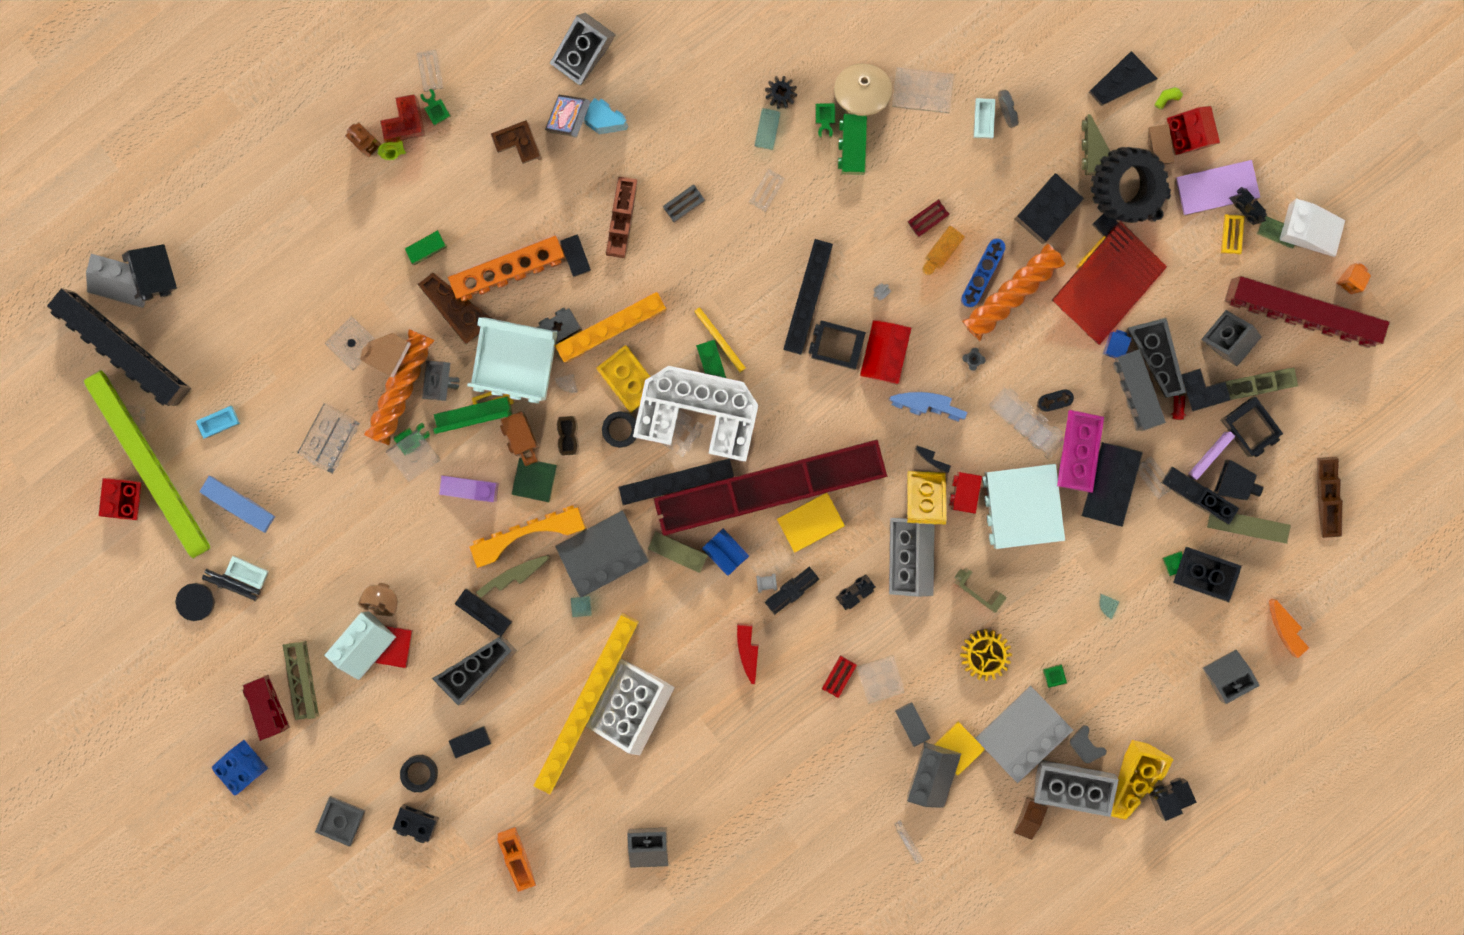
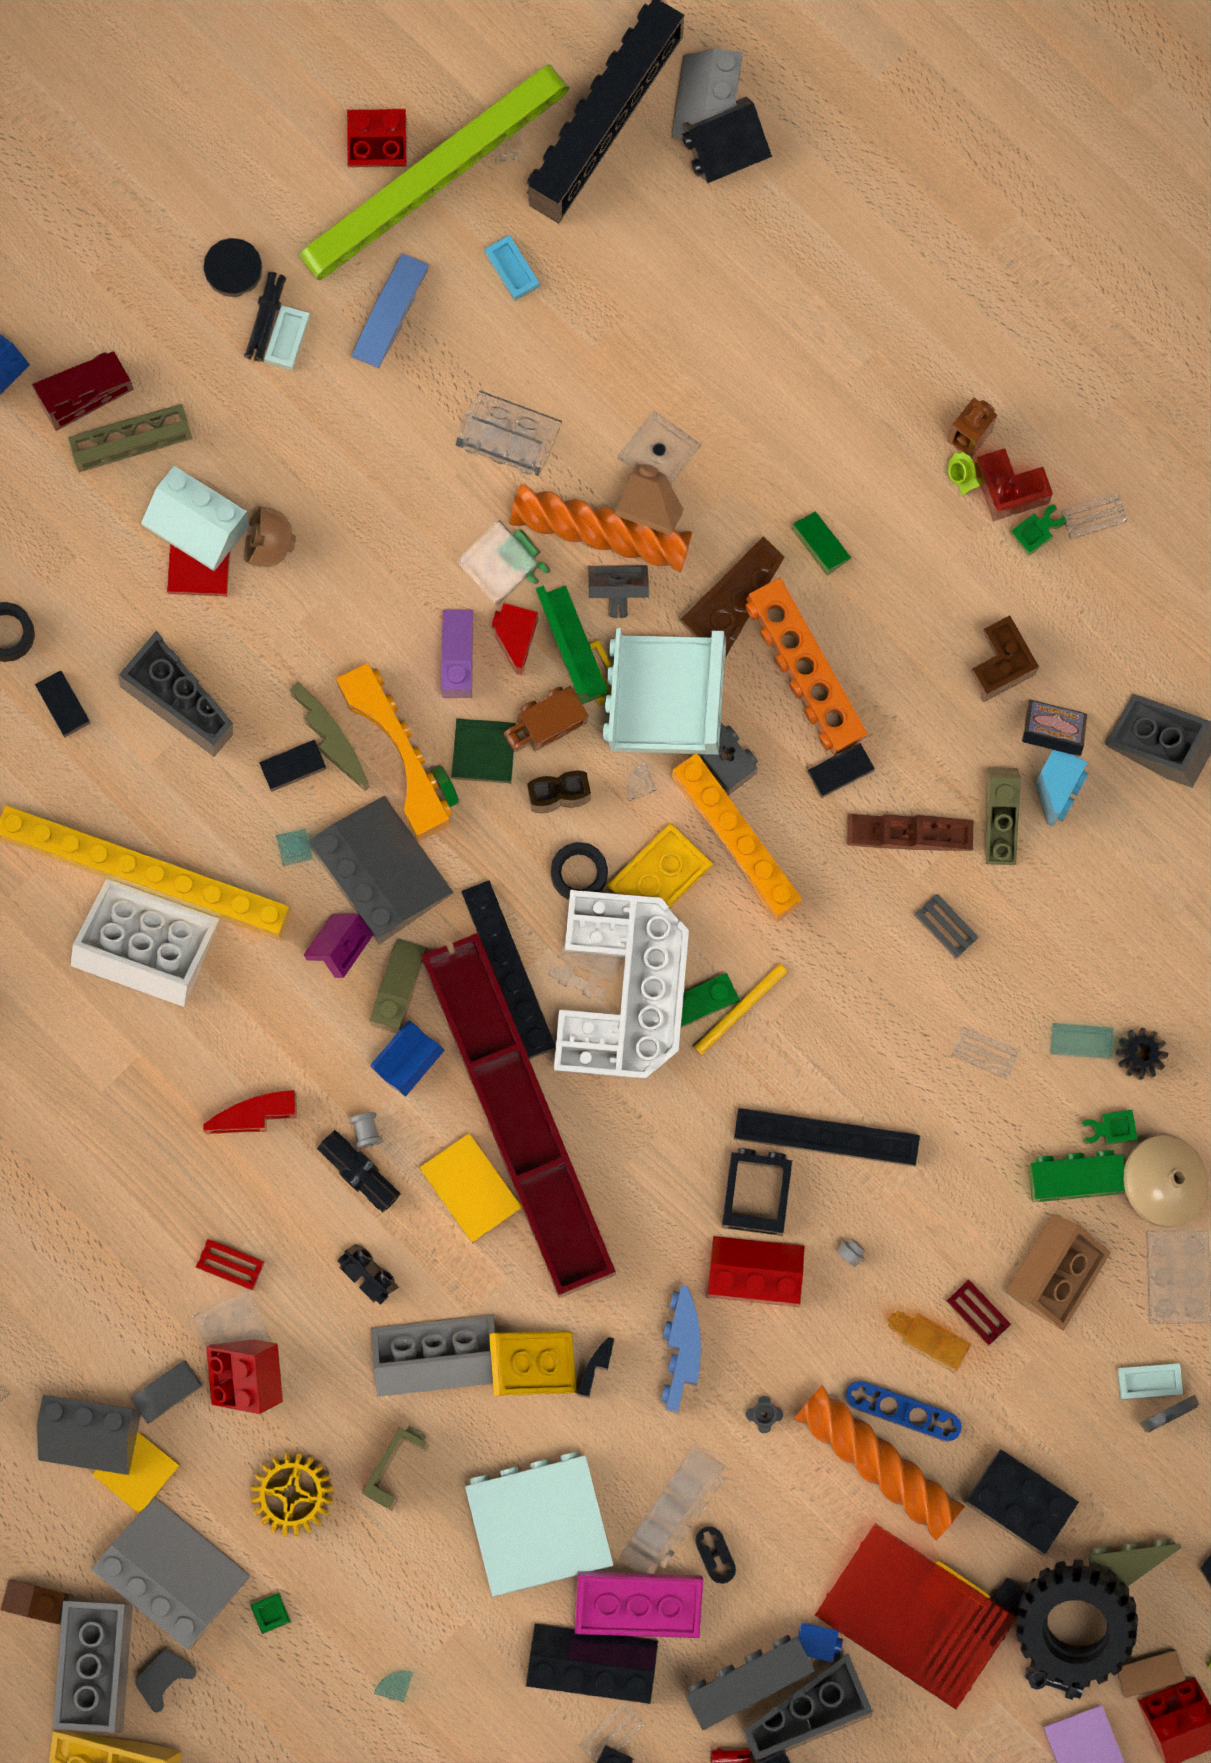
camera: 85 degrees right, 10 degrees down
(461, 450) = (515, 633): none -> red slope
(483, 612) = (267, 699): black tile -> none
(528, 601) = (292, 765): none -> black tile
(554, 506) = (445, 786): none -> green tile
(617, 157) = (1002, 815): none -> olive slope
(647, 585) = (339, 943): none -> magenta panel
(910, 165) = (1058, 1271): none -> medium nougat slope
(910, 675) = (245, 1375): none -> red slope
(966, 492) = (549, 1427): red brick -> none

